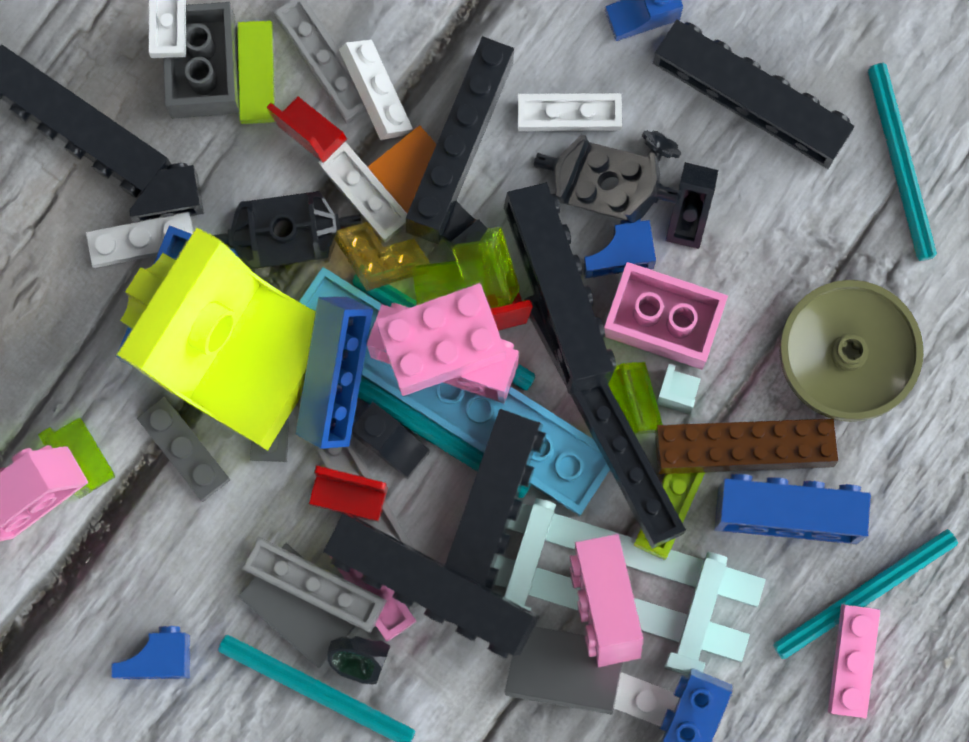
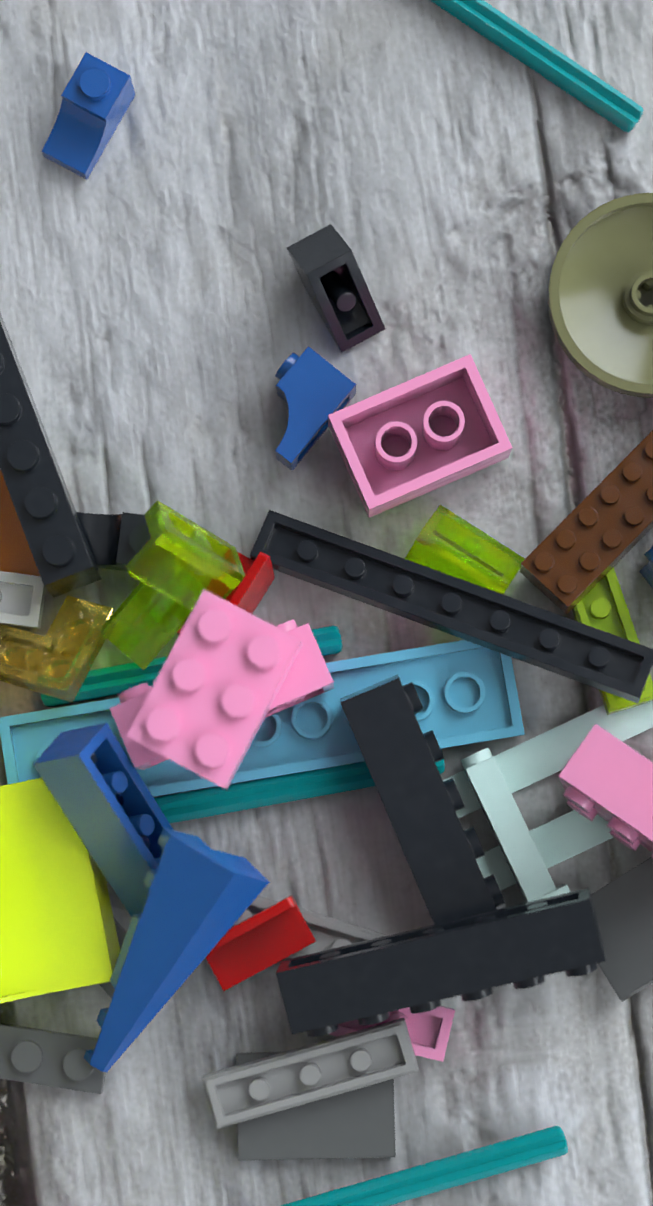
camera: 40 degrees left, 5 degrees up
(325, 441) = (186, 913): none -> blue wedge
(358, 658) = (431, 1107): black rock -> none
(389, 440) = (258, 837): black arch -> none
(559, 288) = (278, 508): black brick -> none
(570, 112) = (110, 303): white plate -> none
(585, 167) = (183, 351): black plate -> none
(660, 145) = (243, 254): black plant -> none
(678, 390) = (504, 504): light aqua panel -> none
(753, 93) = (290, 105): black brick -> none

